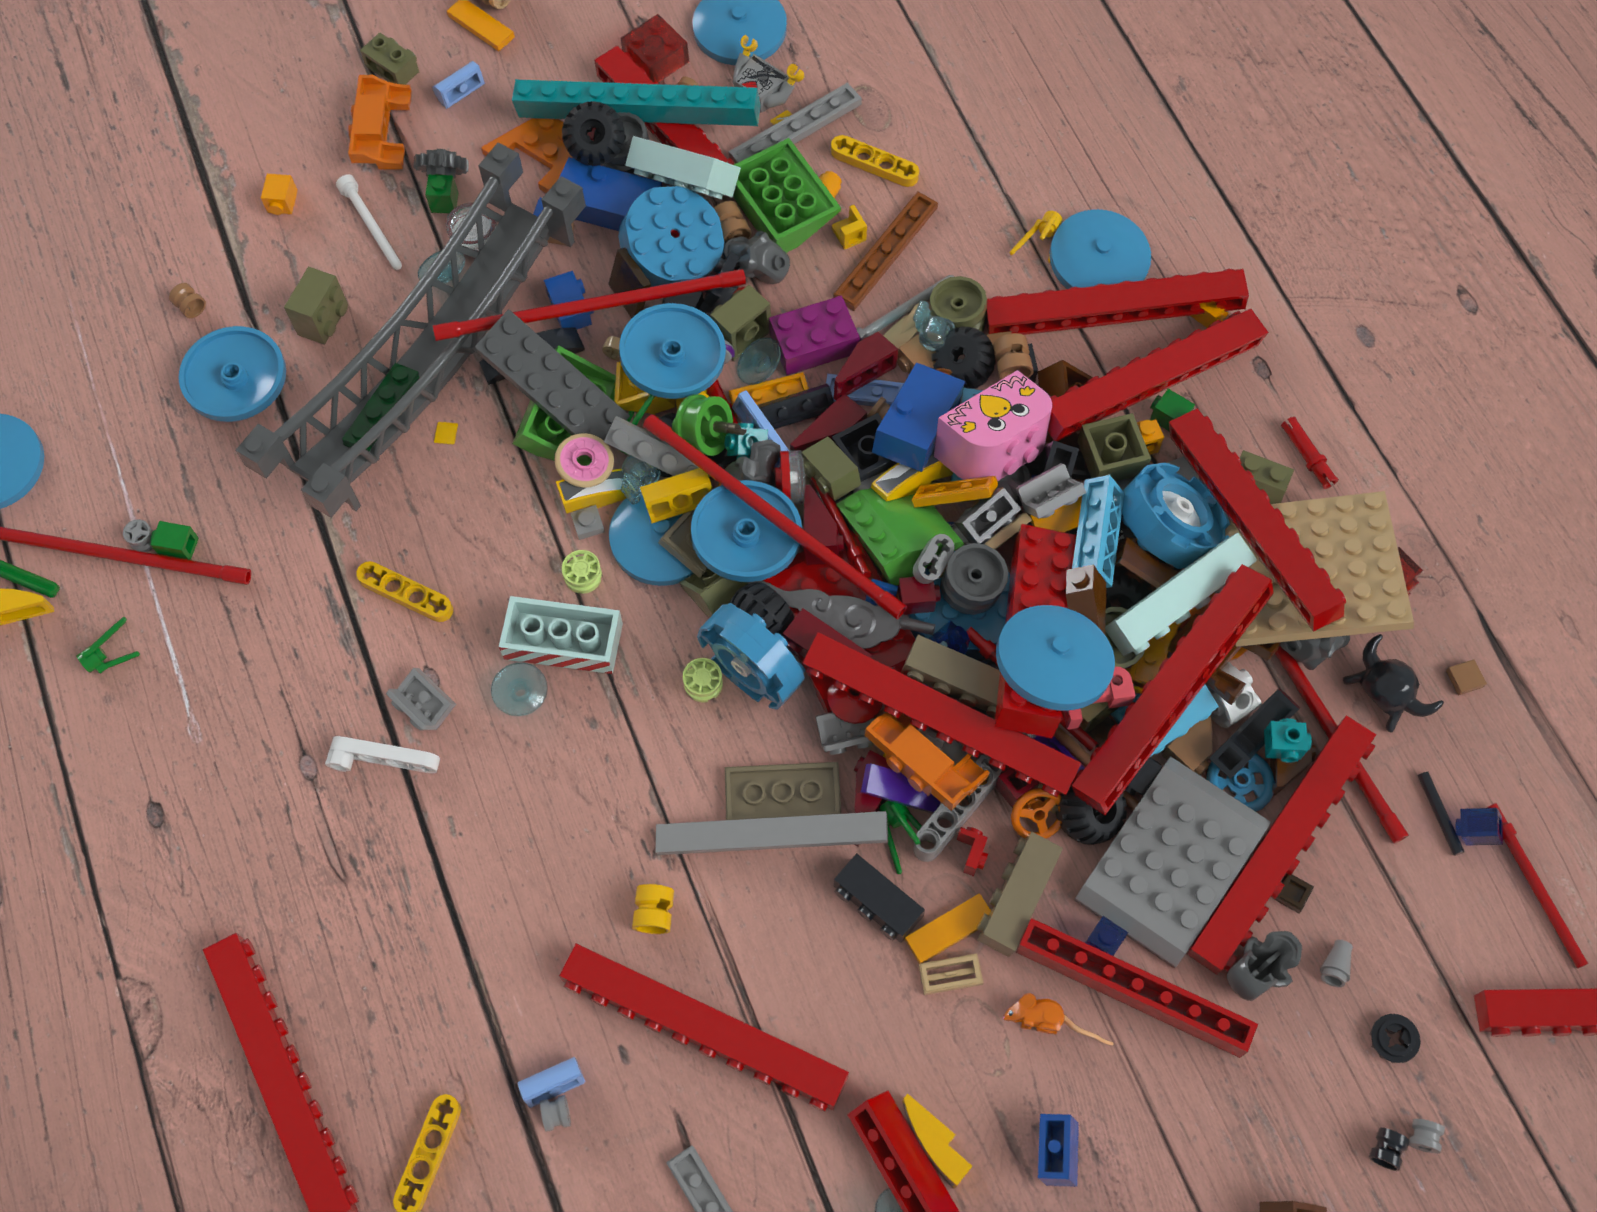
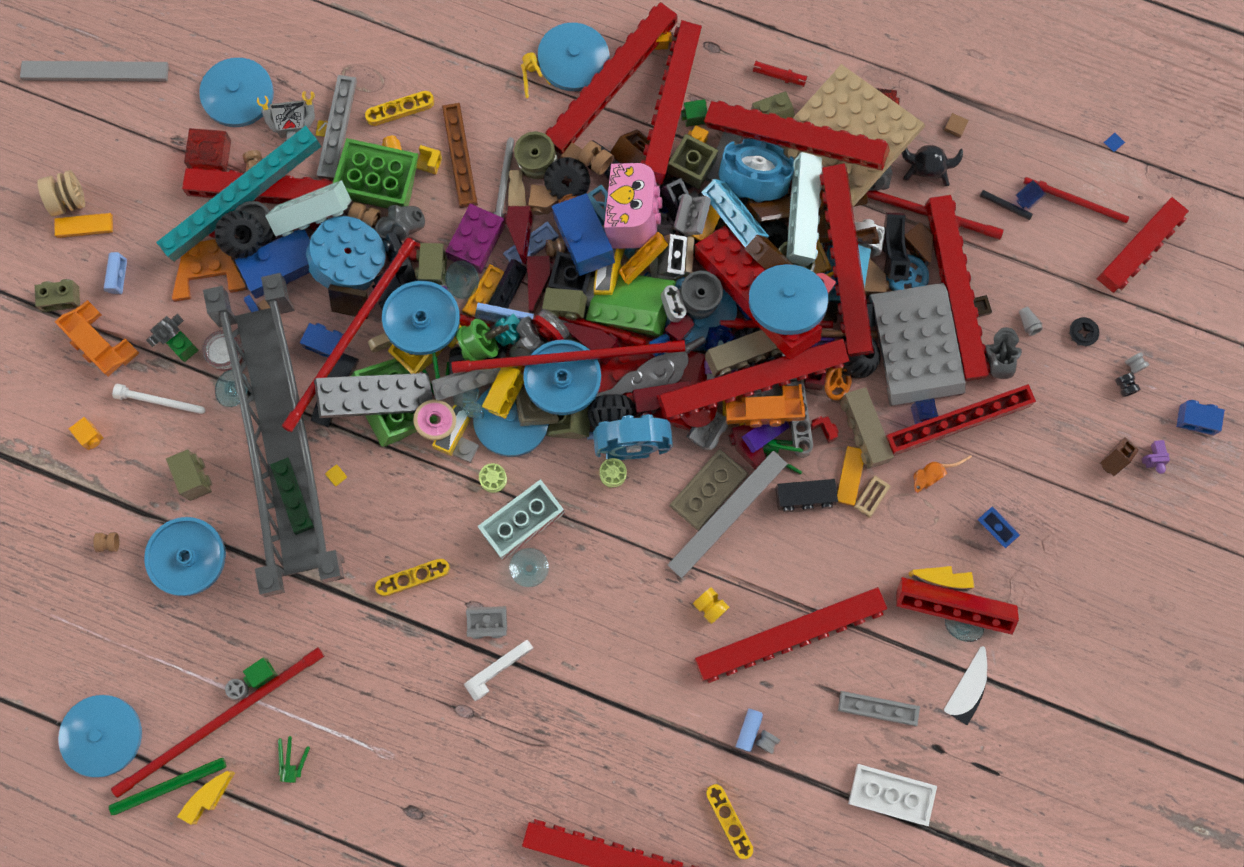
camera: 50 degrees left, 10 degrees up
(932, 328) = (539, 179): clear light blue piece -> none
(1286, 740) = (916, 236): teal brick -> none

